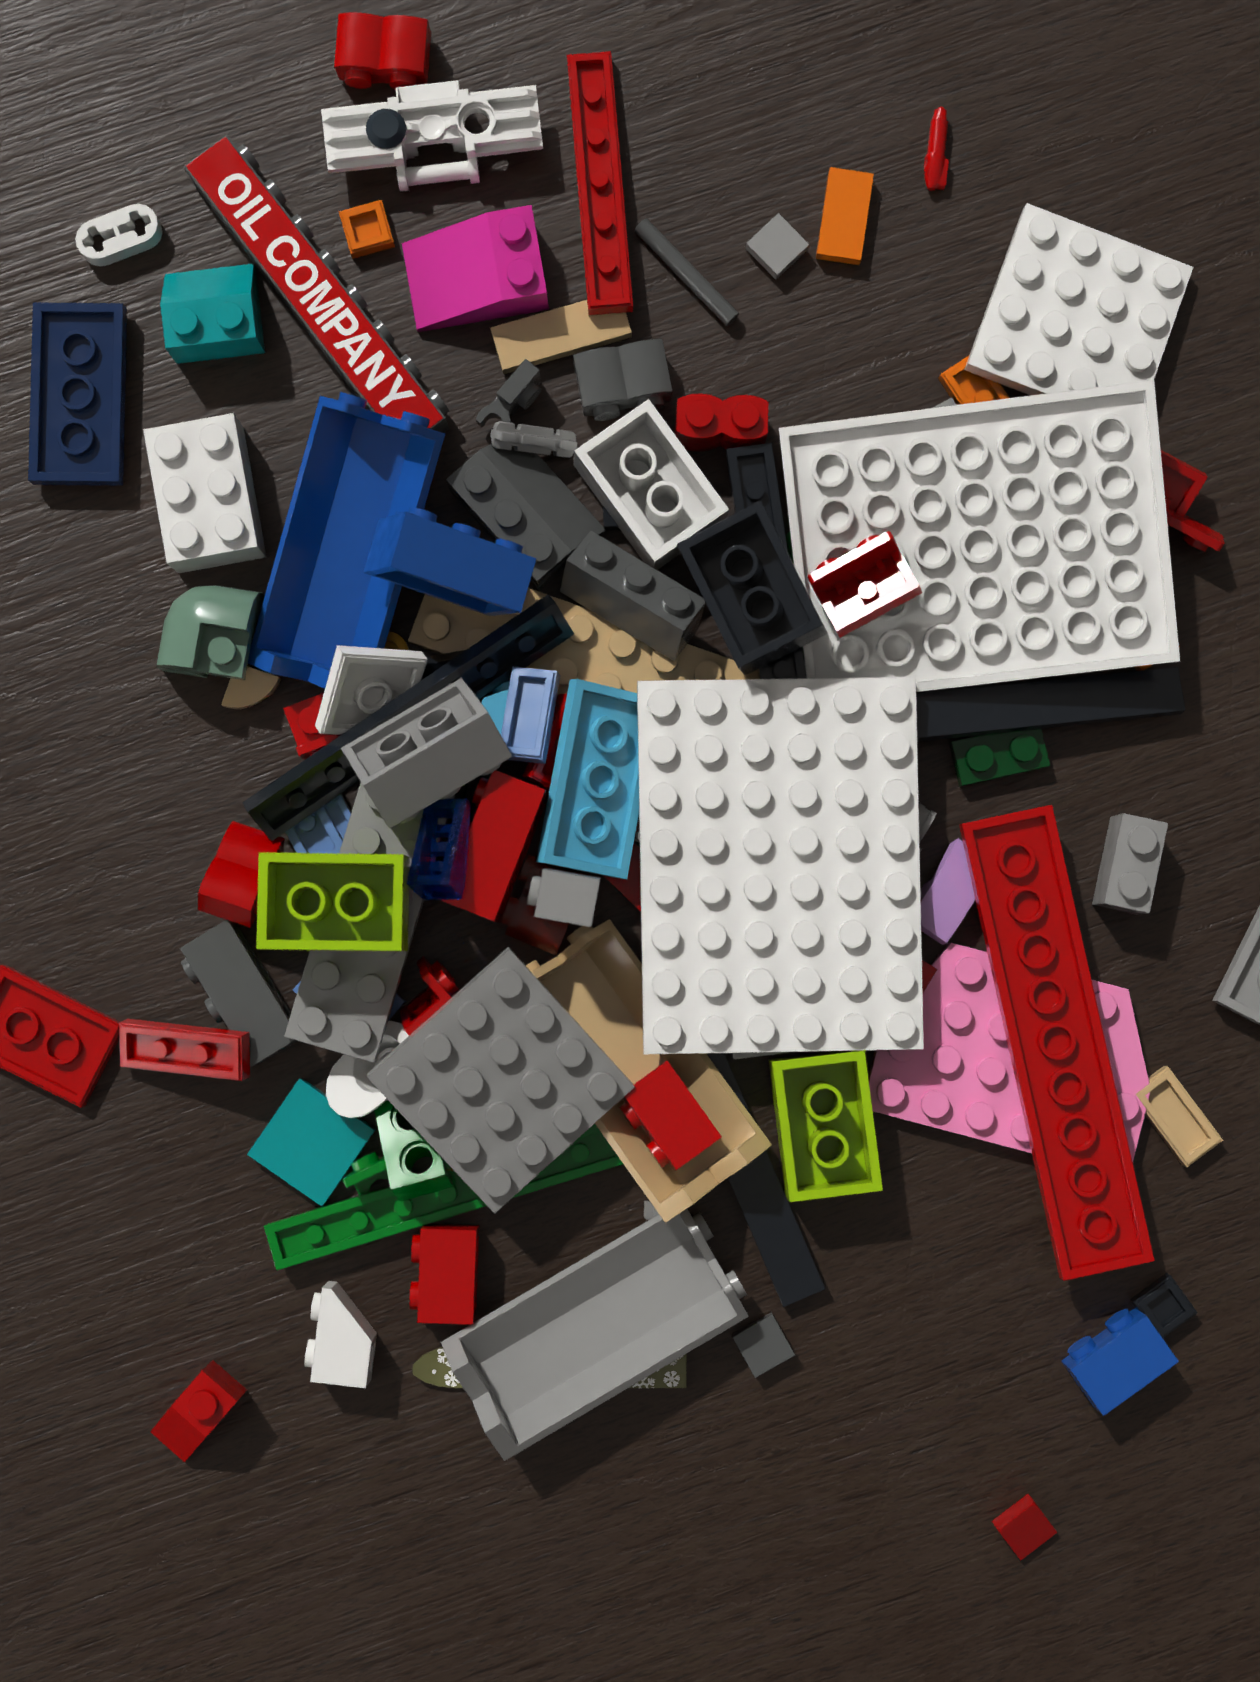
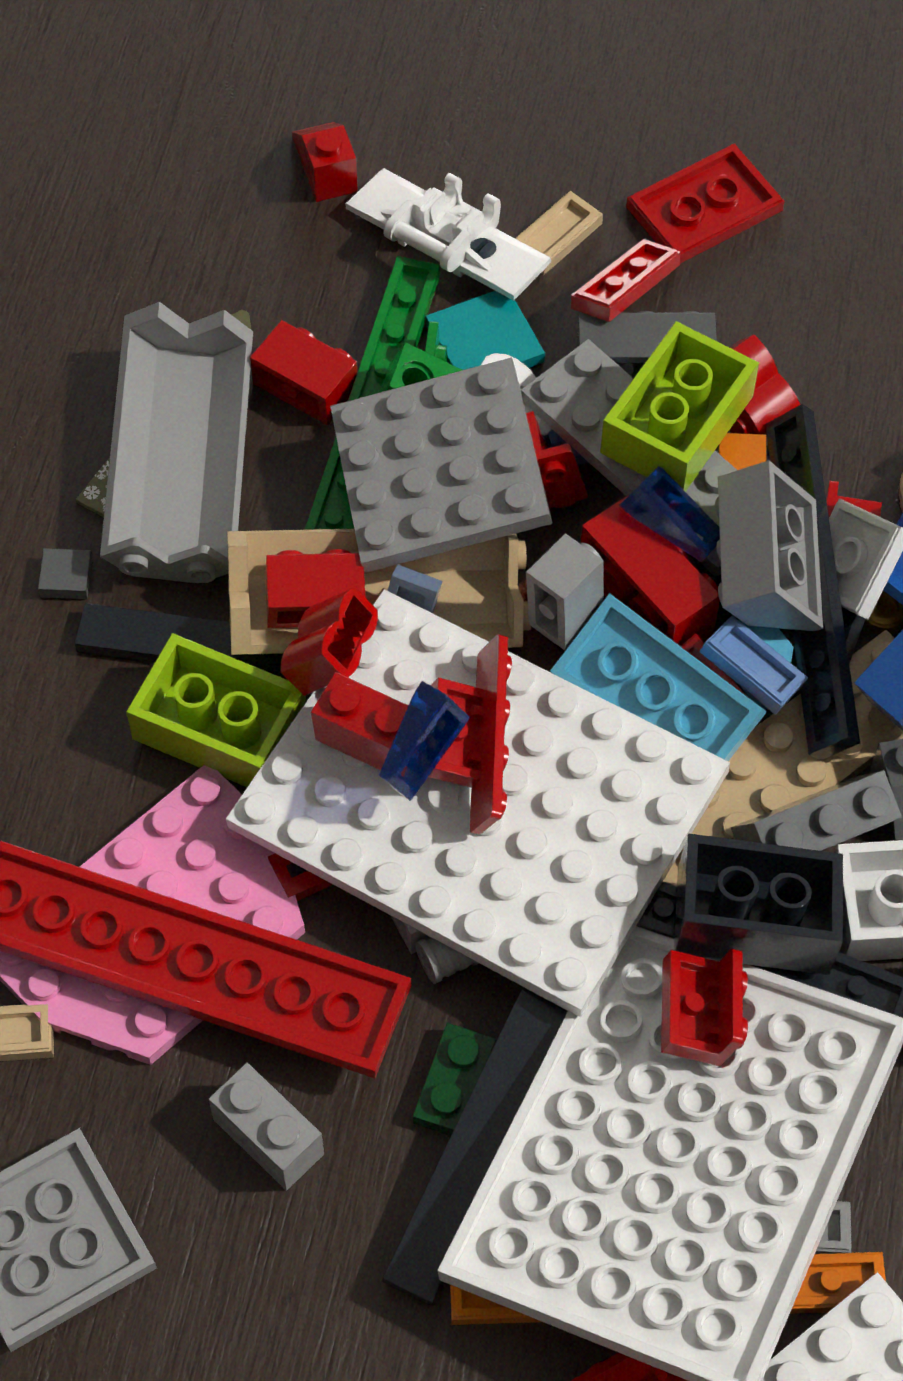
camera: 125 degrees right, 25 degrees down
(155, 1149) = (562, 228): none -> tan tile
(207, 1240) = (450, 230): none -> white piece
(316, 836) = (743, 449): none -> orange tile
(343, 1340) = (307, 274): white slope -> none
(622, 1034) = (415, 587): none -> sand blue plate
(731, 1060) = (329, 640): none -> red brick
(749, 893) = (479, 750): none -> red bracket
(791, 915) = (422, 739): none -> clear blue slope
(795, 975) = (357, 720): none -> red brick
(947, 895) = (345, 931): lavender slope -> none

